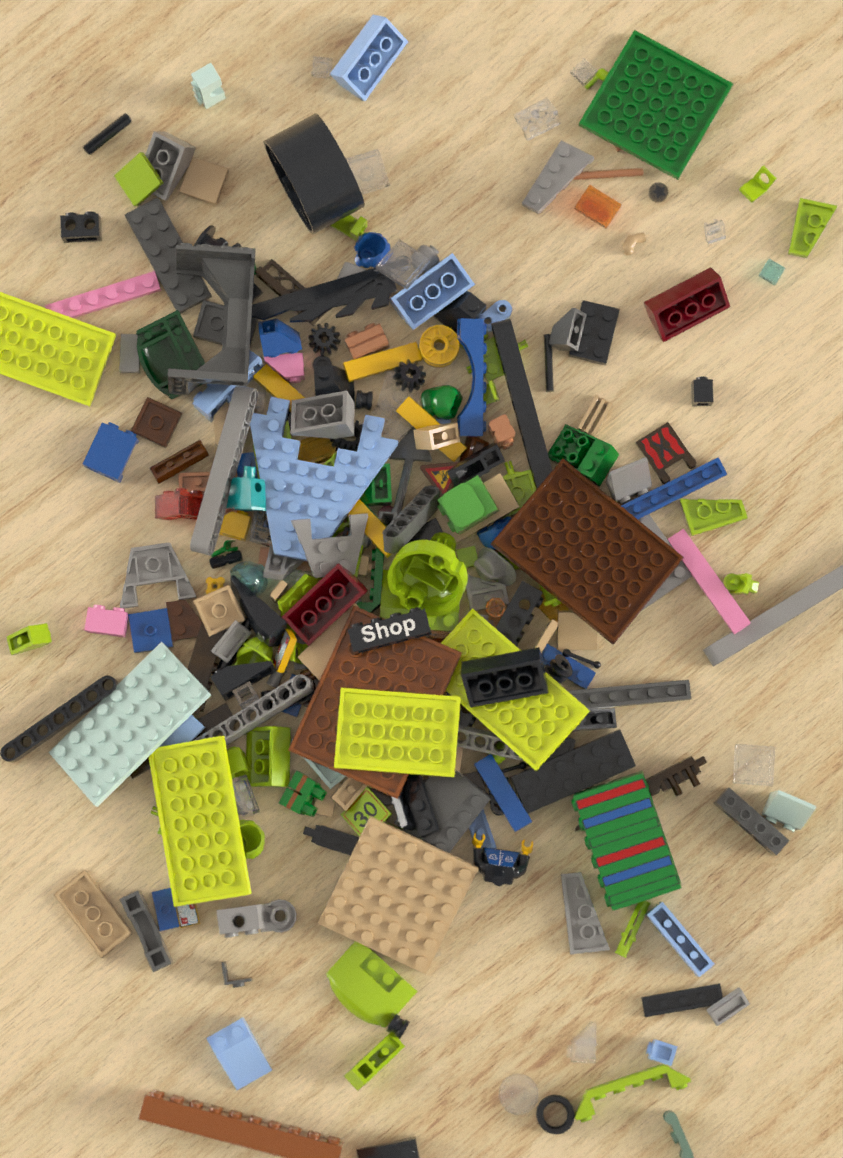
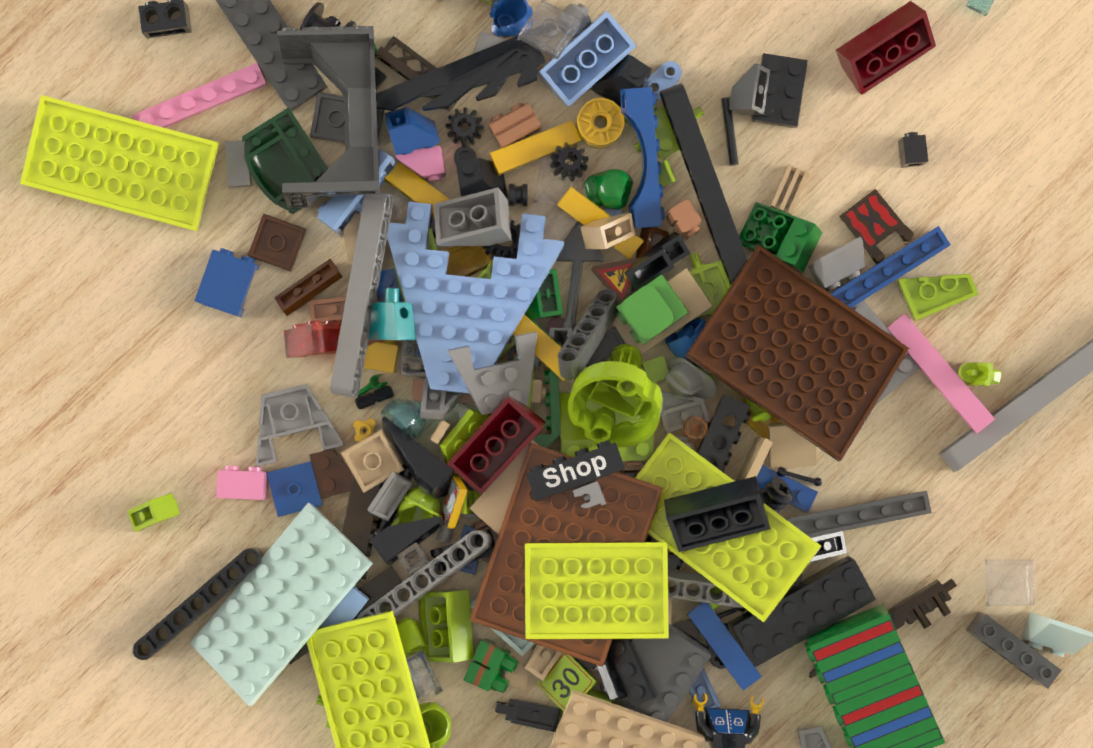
camera: 10 degrees left, 5 degrees up
(400, 650) = (594, 493): none -> light grey hinge

